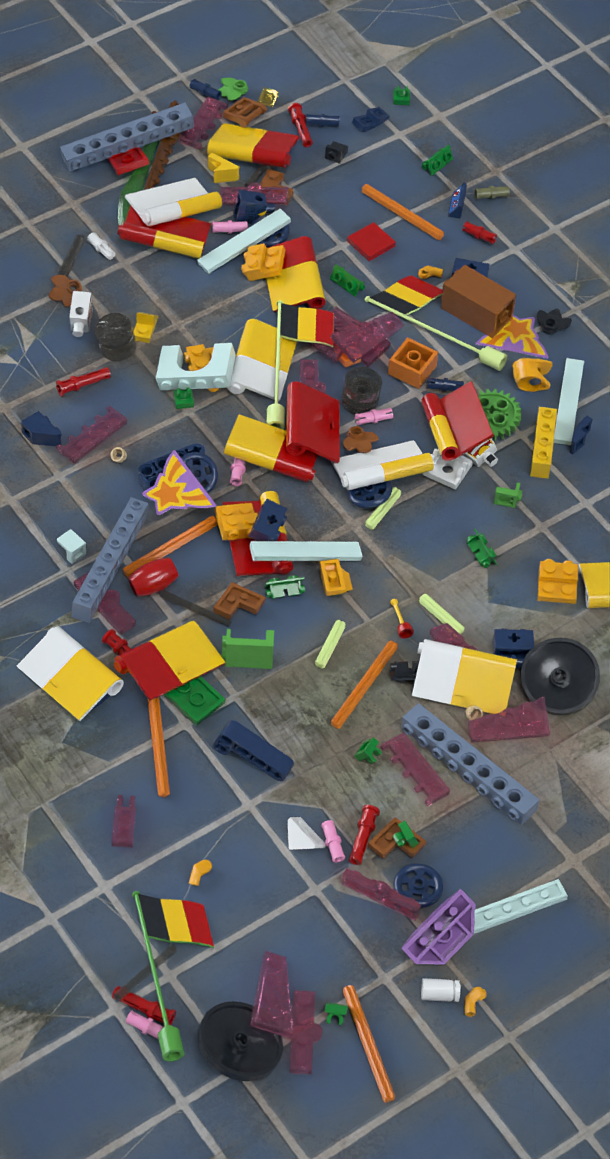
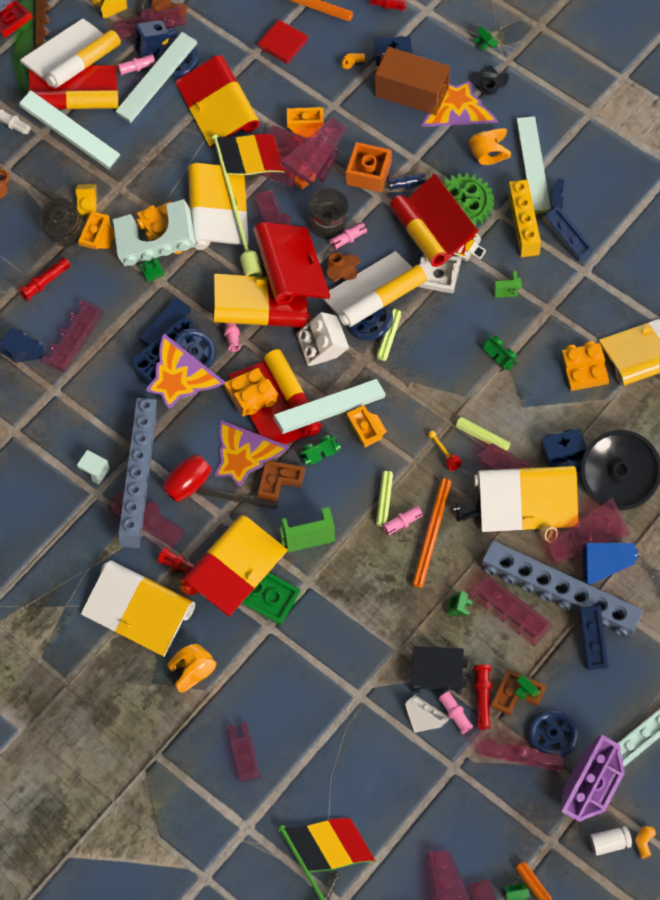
camera: 10 degrees left, 10 degrees up
(80, 318) = (18, 205): white torso -> none
(105, 736) = (197, 666): none -> light orange helmet
(121, 451) = (106, 356): tan hinge -> none
(144, 354) = (97, 232): none -> light orange slope
(149, 263) = (69, 130): none -> light aqua tile
(158, 748) = (252, 663): orange axle -> none
(172, 544) = (191, 437): orange axle -> none
(184, 440) = (172, 314): none -> dark blue tile
(198, 870) = (335, 783): light orange arm -> none
(214, 570) = (244, 452): none -> sticker
(253, 749) = (348, 638): dark blue beam -> none
(263, 262) = (183, 95): light orange plate -> none
(269, 513) = (278, 396): dark blue brick -> none
(319, 495) = (322, 339): none -> white slope
(329, 799) = (438, 669): none -> black panel
(340, 666) = (402, 520): none -> bright pink pin
(346, 280) = (272, 92): green hinge -> none
(367, 309) = (305, 120): none -> light orange slope
(413, 294) = (341, 91): flag -> none
(485, 811) = (594, 637): none -> dark blue tile
(520, 748) = (605, 559): none -> blue slope
(561, 285) = (486, 37): none -> green tile
(580, 464) = (567, 233): none -> dark blue tile

